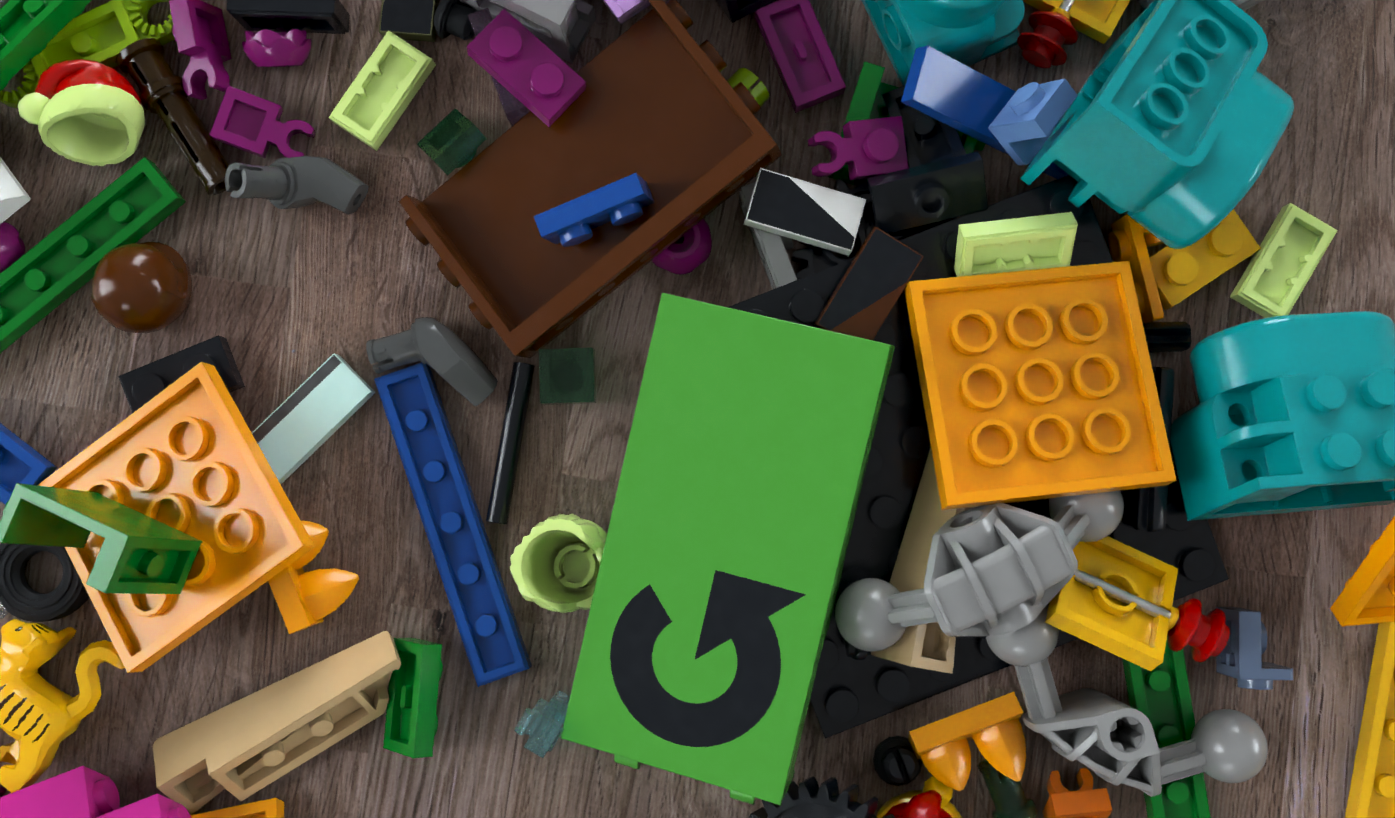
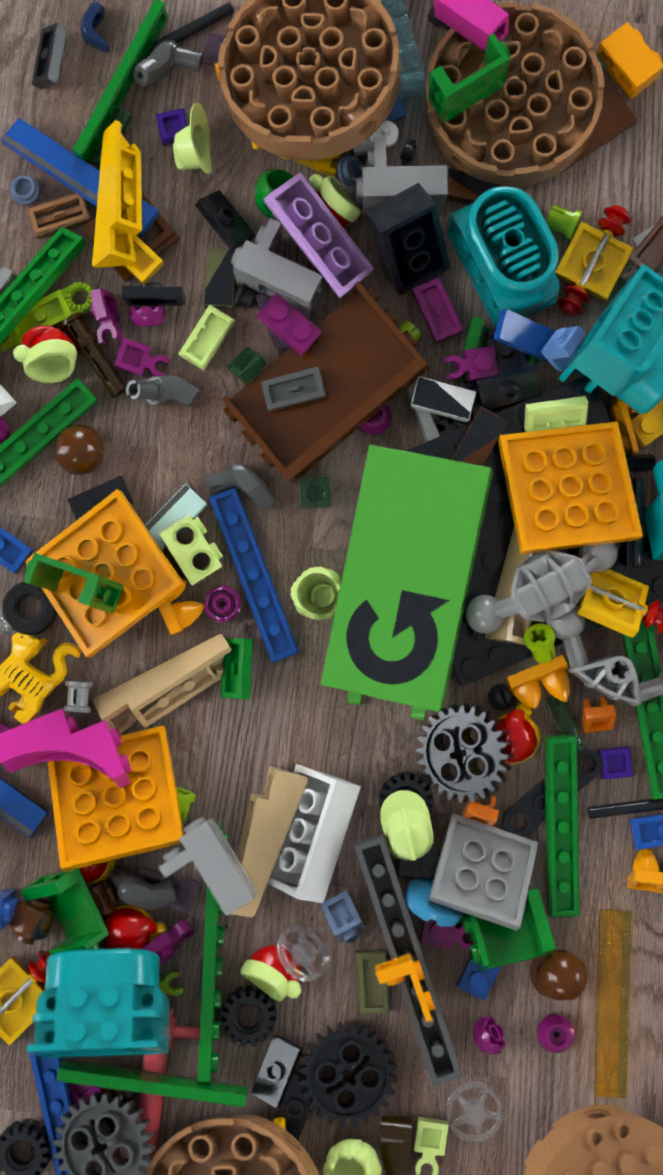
camera: 10 degrees left, 0 degrees up
(120, 740) = (77, 696): none -> light grey bush
(320, 482) = (185, 552): none -> yellowish green brick
(374, 578) = (217, 595): none -> magenta plate
(510, 443) = (284, 530): black bar -> none
(530, 185) = (293, 389): none -> dark grey plate
(544, 723) = (310, 679): clear light blue plate -> none
(615, 202) = (341, 397): blue plate -> none
(974, 669) = (540, 641): none -> lime bush

